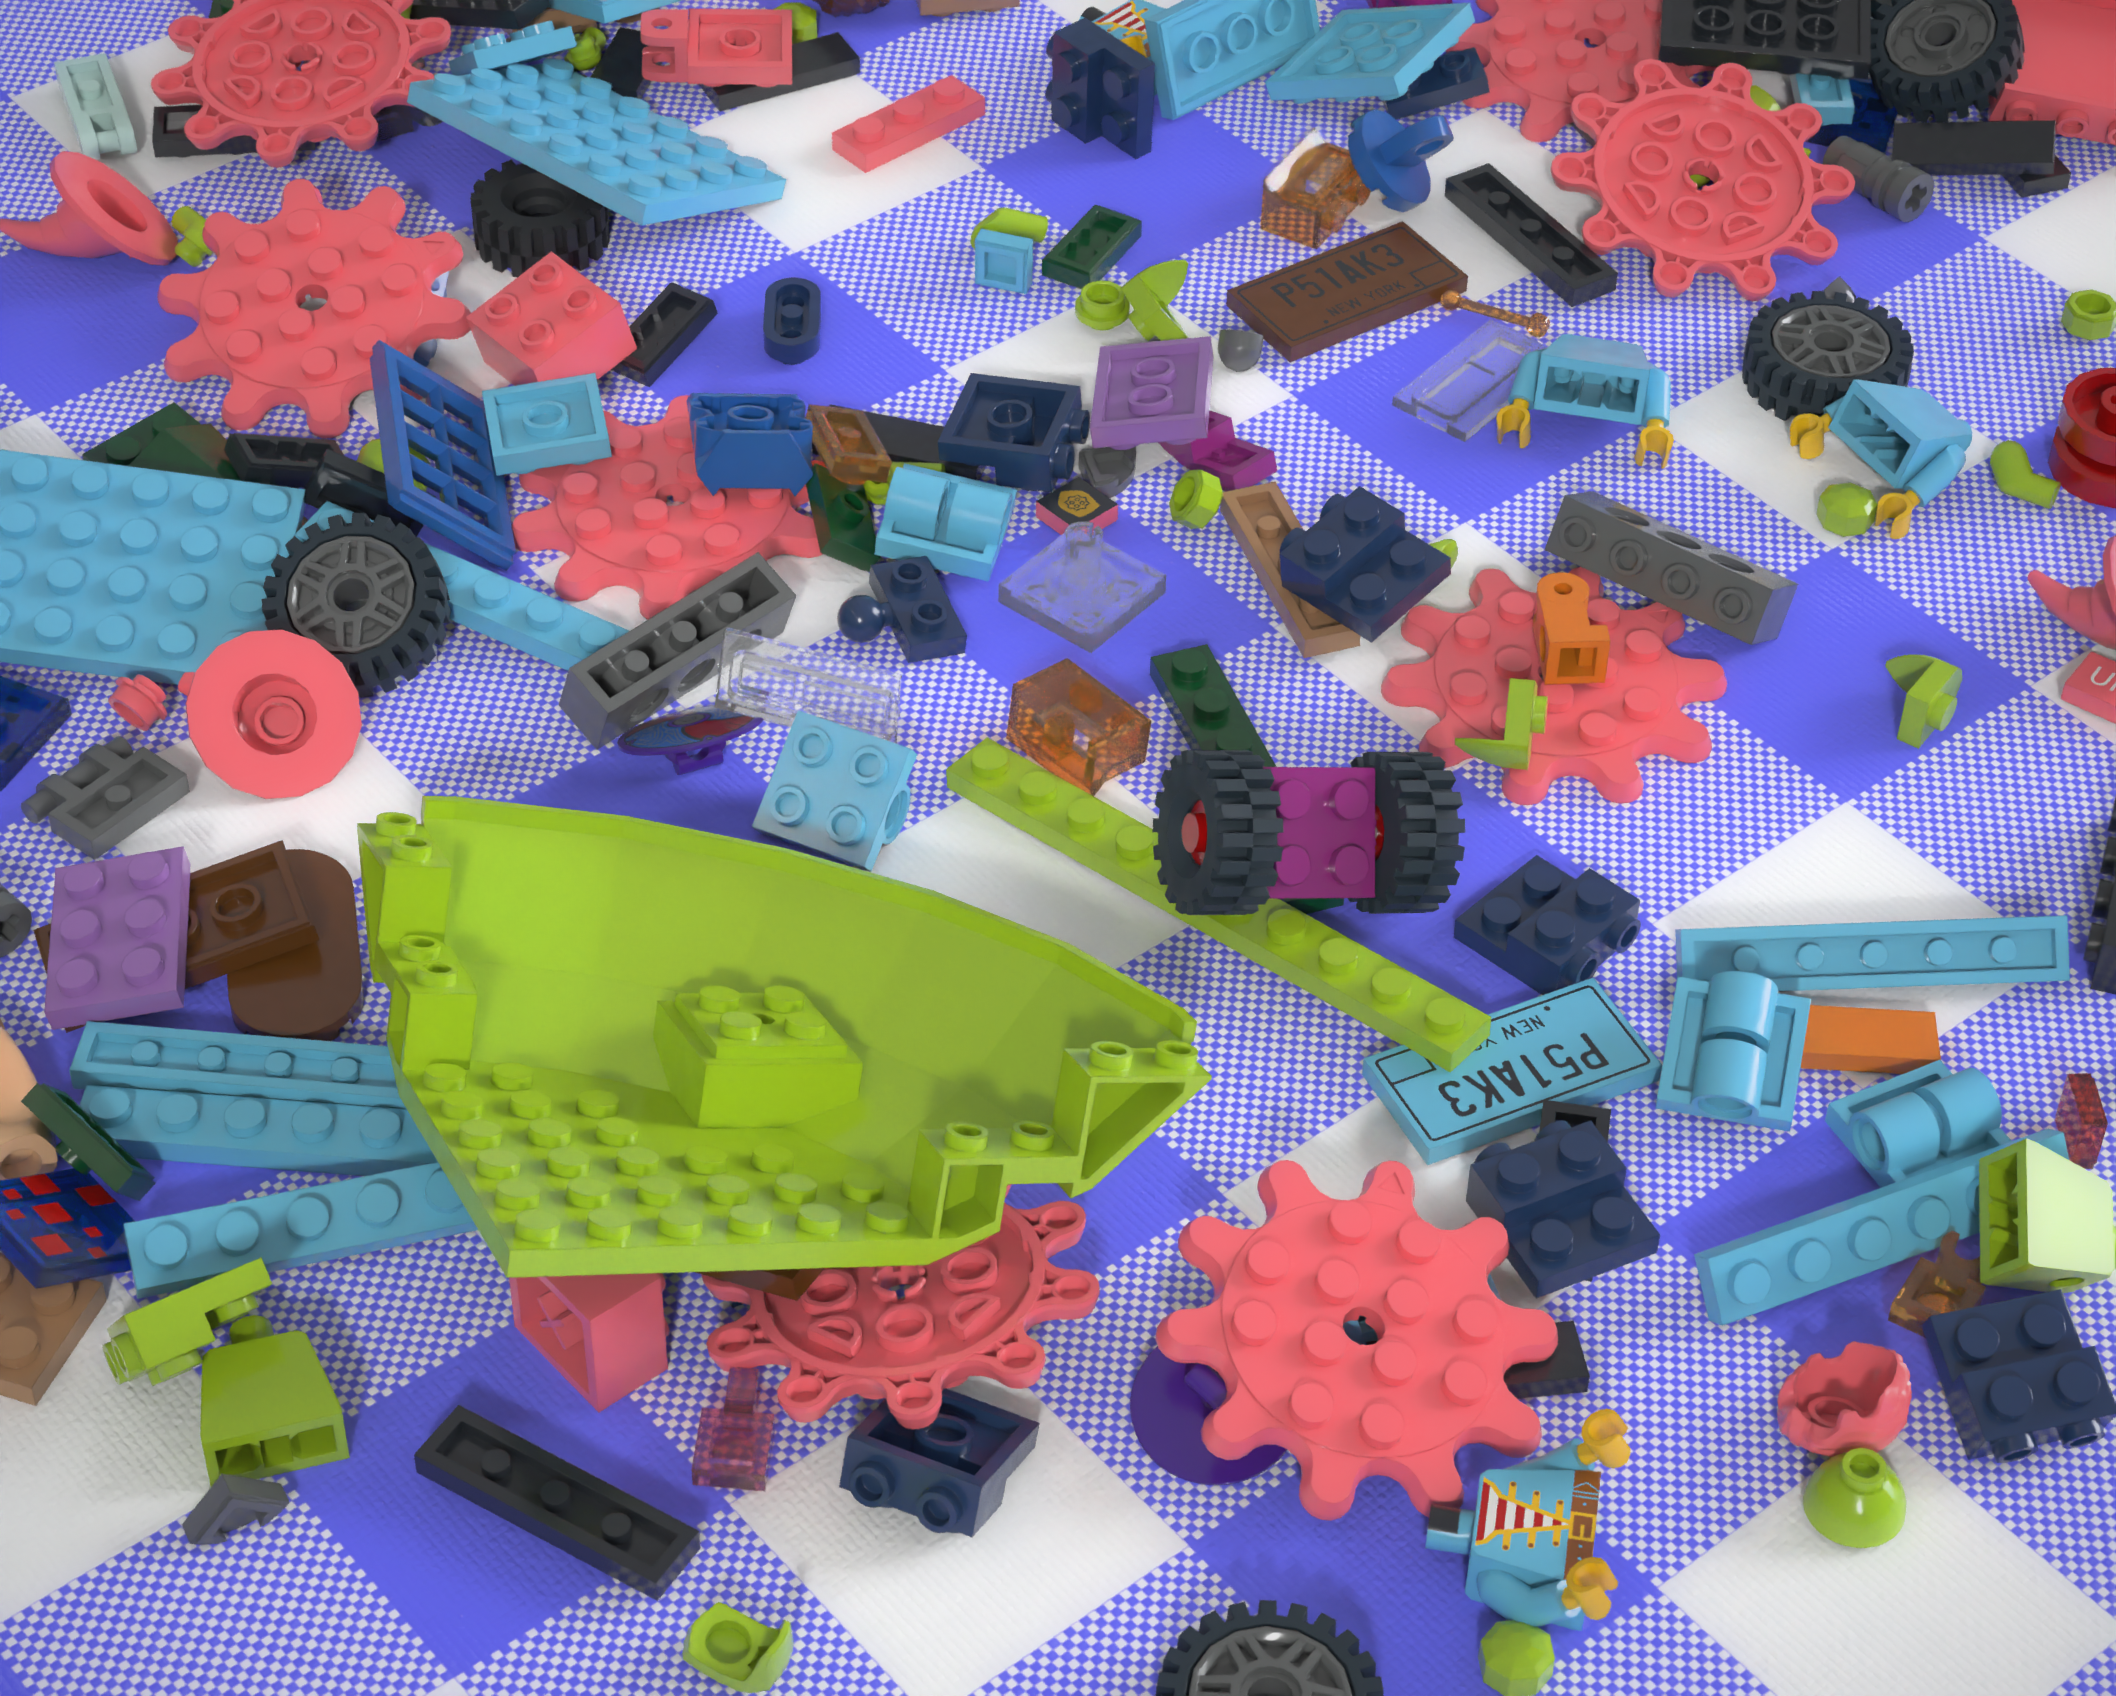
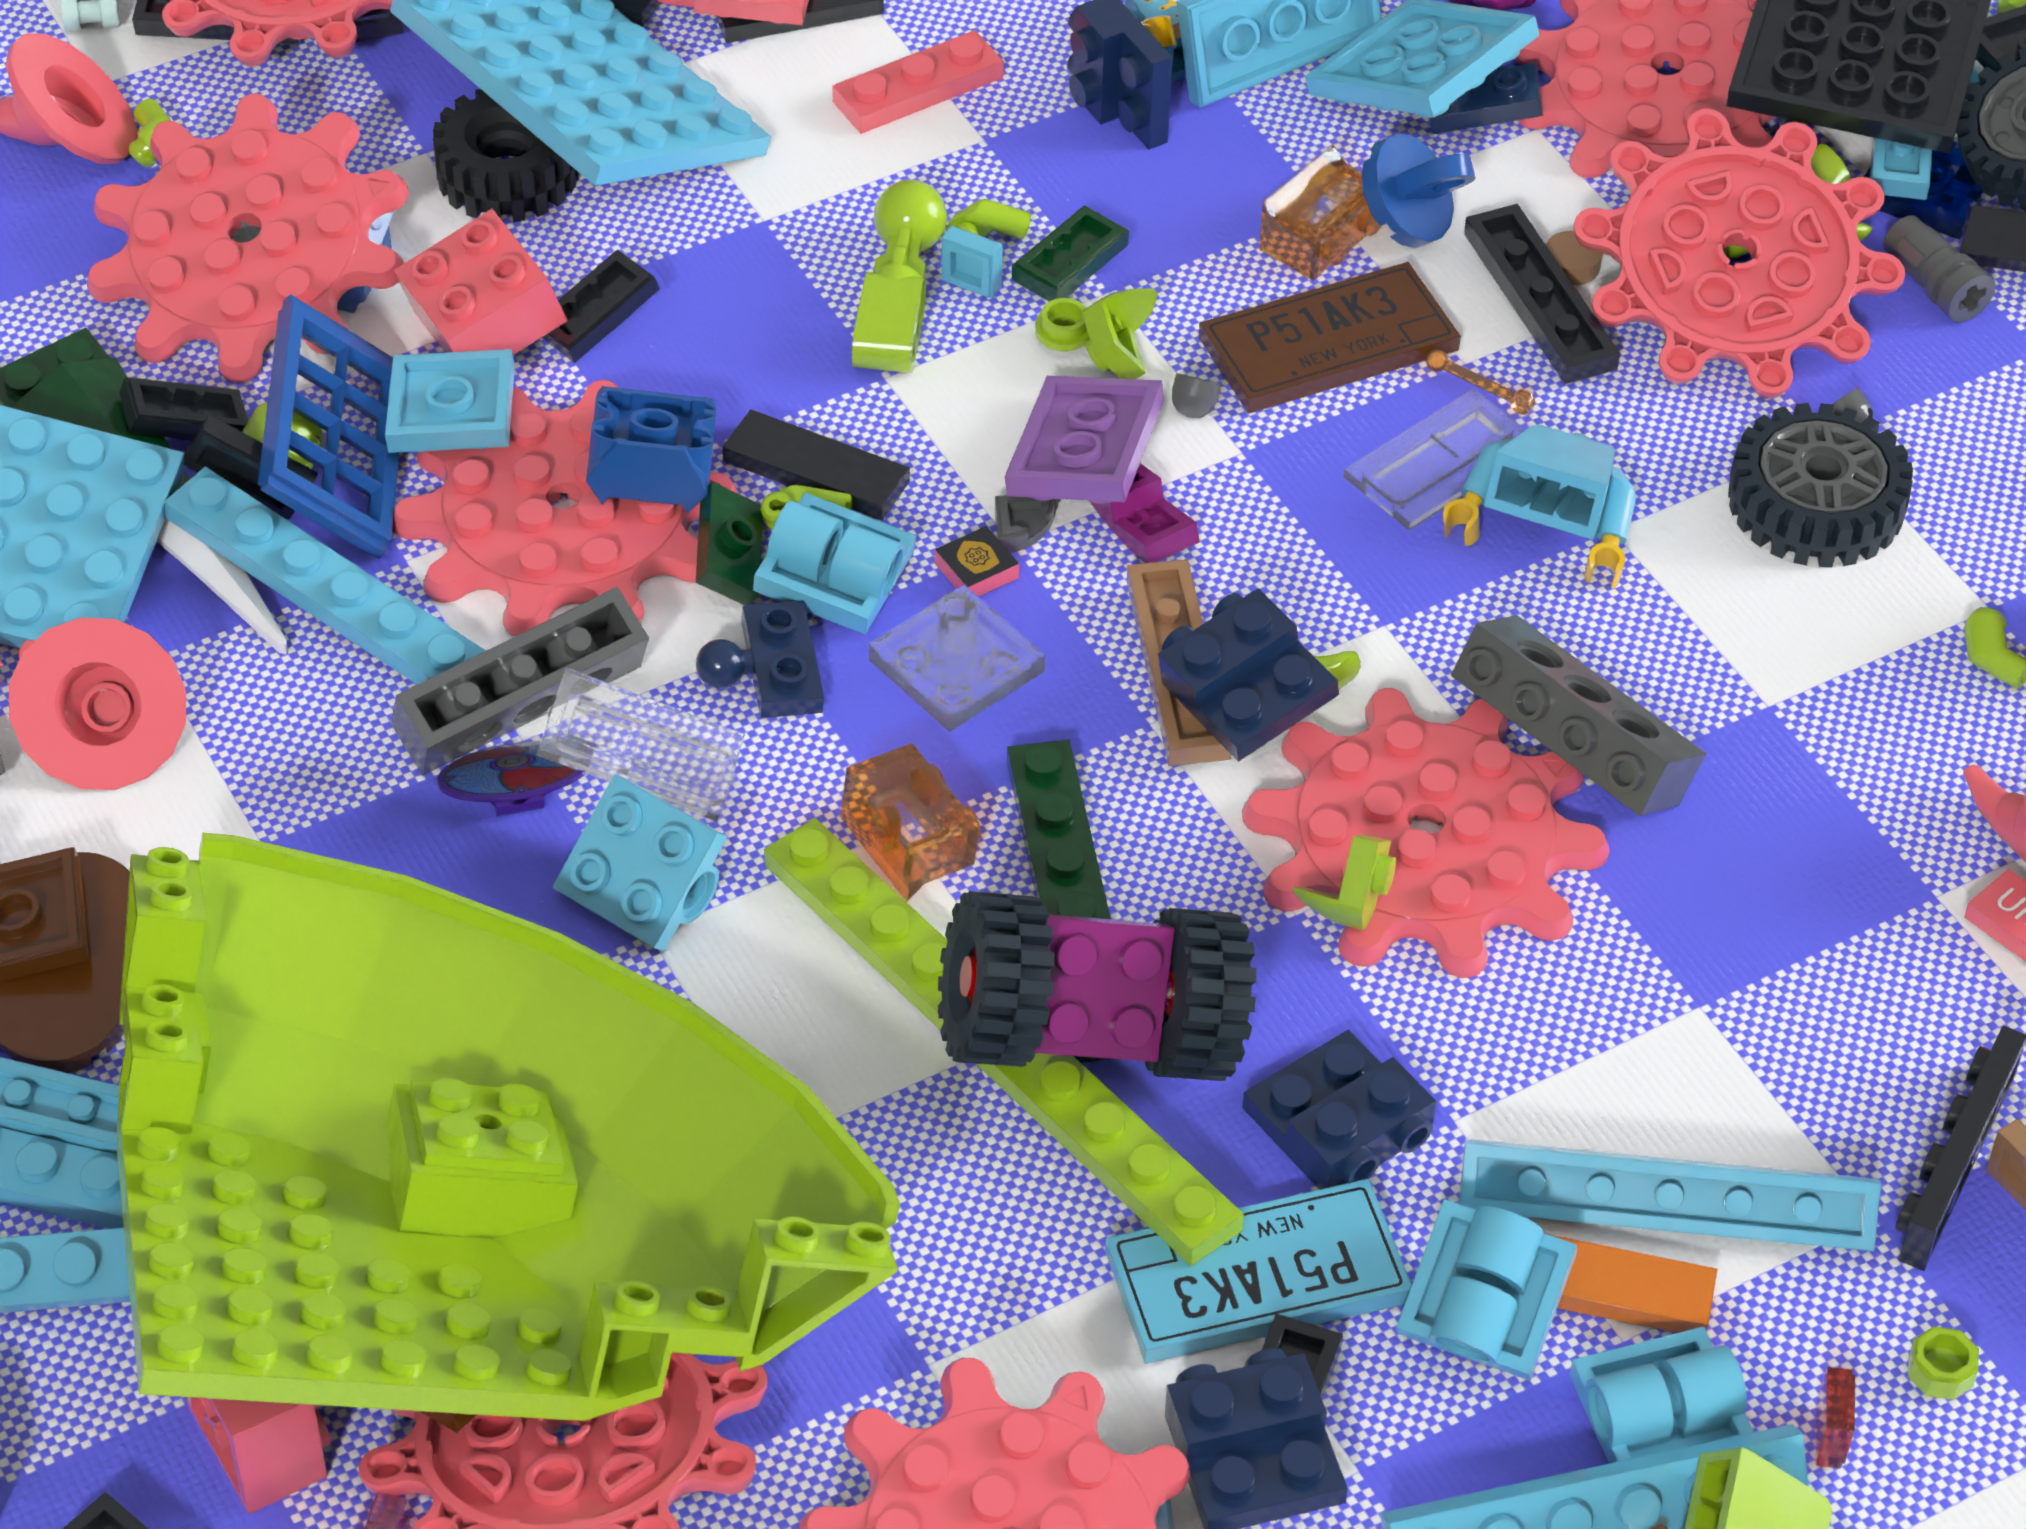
camera: 10 degrees right, 5 degrees up
(357, 563) = (199, 546): wheel -> none
(792, 320) = (736, 304): dark blue plate -> none
(848, 445) = (749, 463): clear orange plate -> none
(938, 233) = (893, 296): none -> lime beam
(1017, 428) = (930, 466): dark blue plate -> none
(1195, 499) = (1100, 568): lime tile -> none
(1553, 200) = (1577, 262): none -> medium nougat tile
(1565, 641) = (1440, 797): orange leg -> none
(1846, 509) = (1793, 664): lime tile -> none
(1899, 435) = (1869, 591): medium azure torso -> none
(1930, 695) = (1816, 903): lime plate -> none

